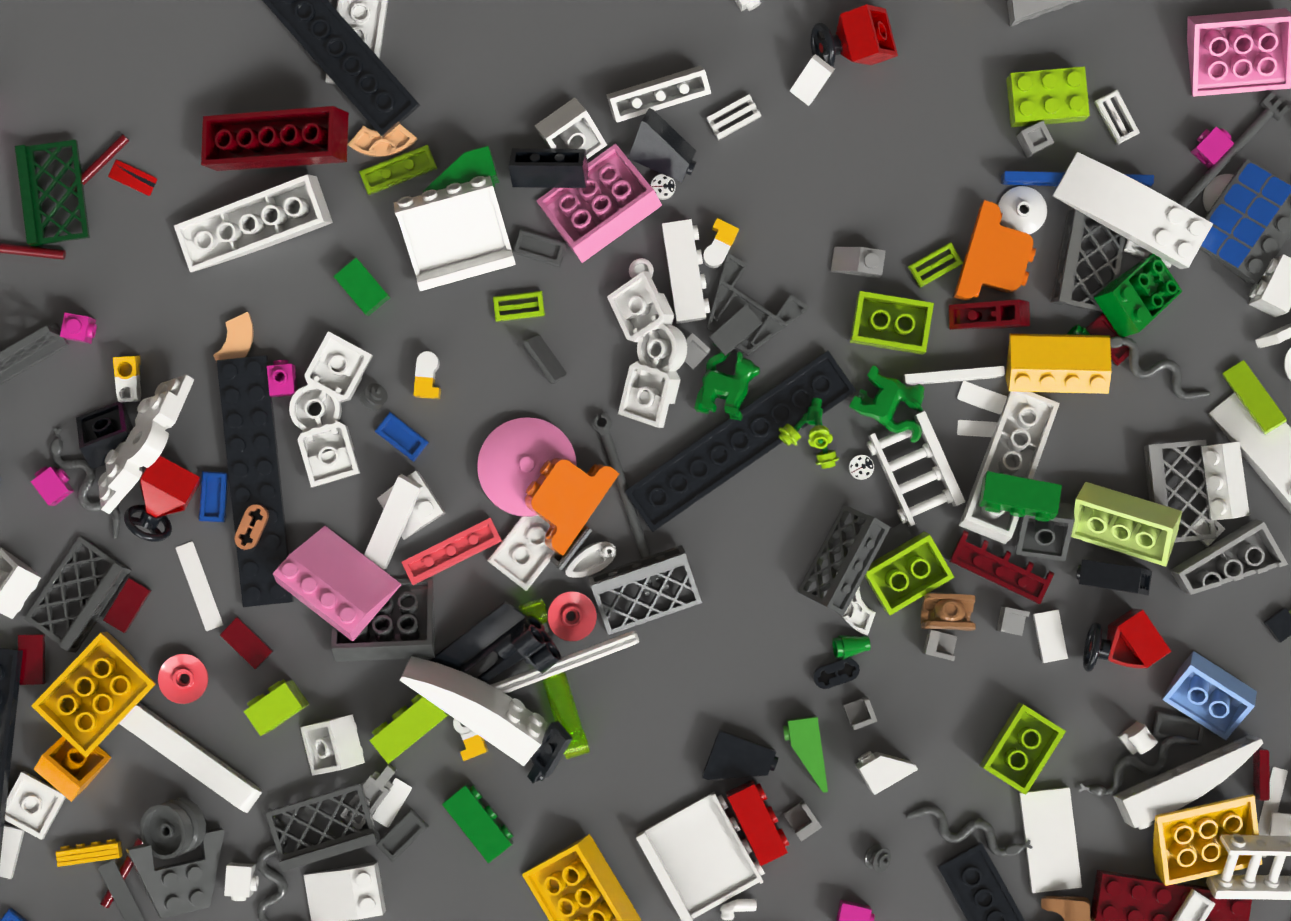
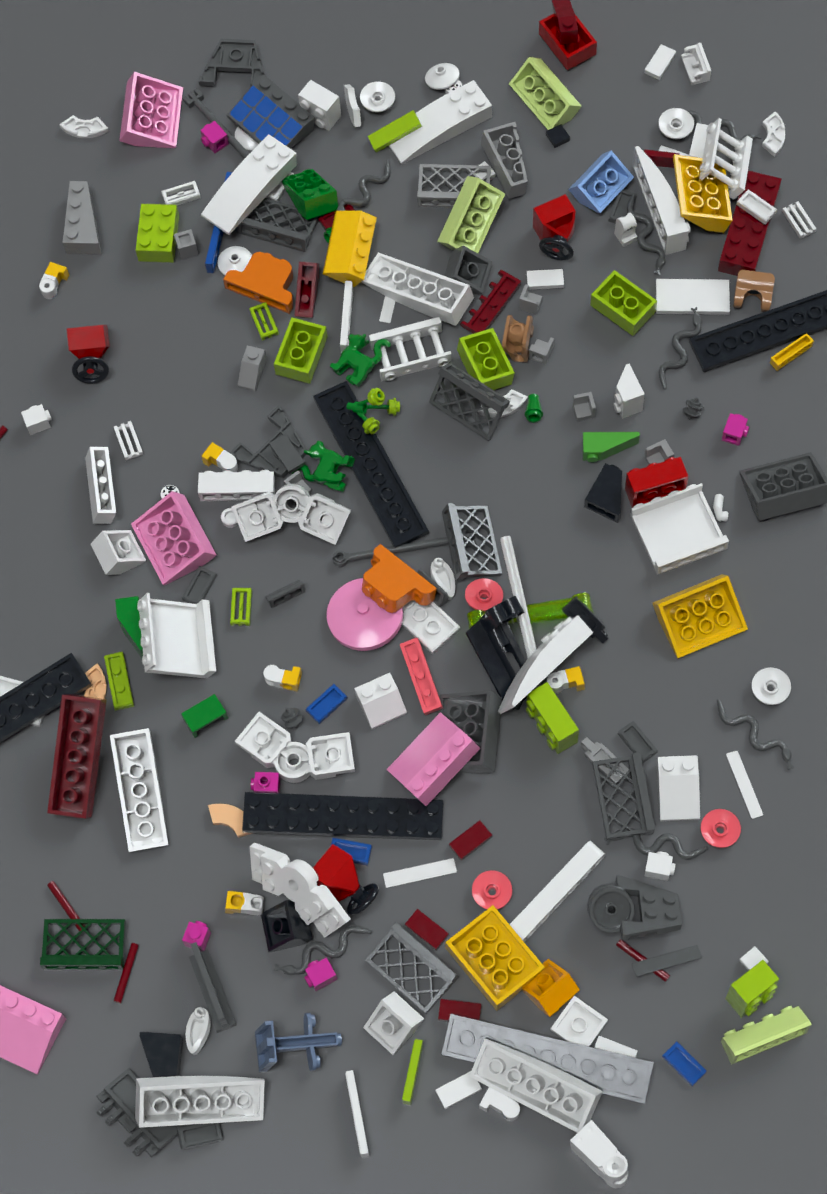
camera: 80 degrees left, 20 degrees down
(83, 854) = (623, 980): yellow piece -> none
(132, 177) = (83, 883): red sticker -> none
(257, 529) = (381, 814): nougat beam -> none
(276, 707) = (524, 817): lime brick -> none
(332, 745) = (560, 783): white slope -> none
(392, 521) = (390, 710): white tile -> none
(392, 803) = (611, 745): white sticker -> none
(478, 822) = (633, 681): green brick -> none
(548, 168) = (140, 566): black brick -> none
(662, 148) = (141, 487): black slope -> none
(812, 80) = (112, 380): white tile -> none
(837, 679) = (557, 420): black beam -> none
(861, 467) = (403, 386): white tile -> none
(982, 397) = (366, 303): white sticker -> none
(1020, 496) = (440, 275): green brick -> none
(1114, 577) = (508, 231): black slope -> none
(1225, 481) = (450, 154): white brick -> none

